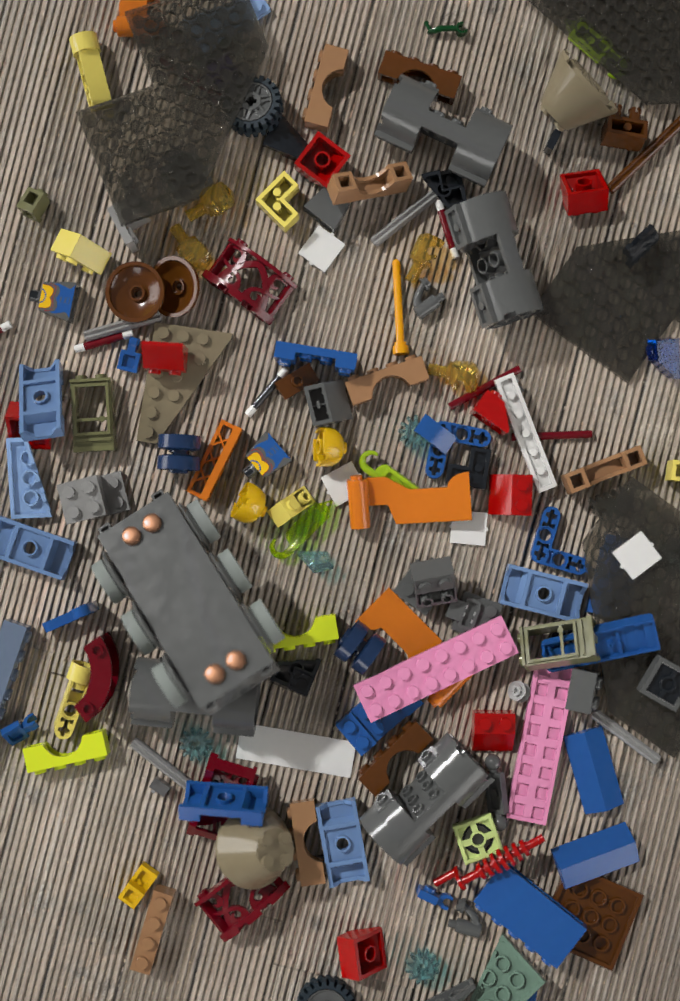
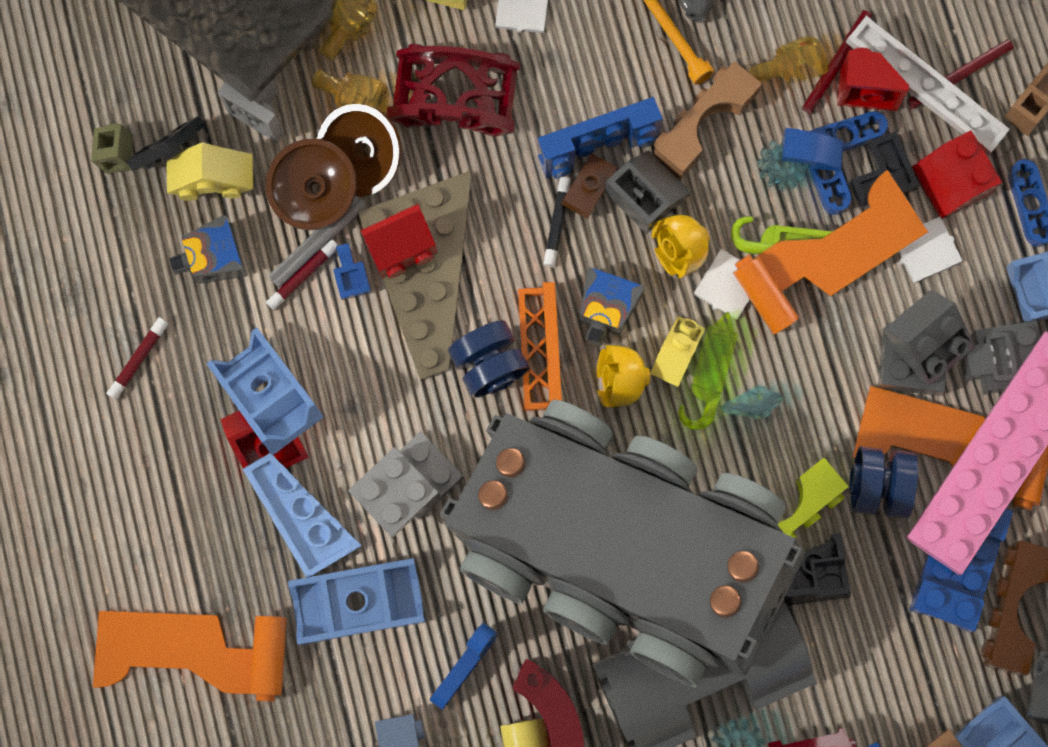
camera: 30 degrees left, 10 degrees down
(65, 222) = (168, 145): none -> black plate
(99, 440) = (363, 408): olive door -> none
(297, 751) = (881, 679): white sticker -> none

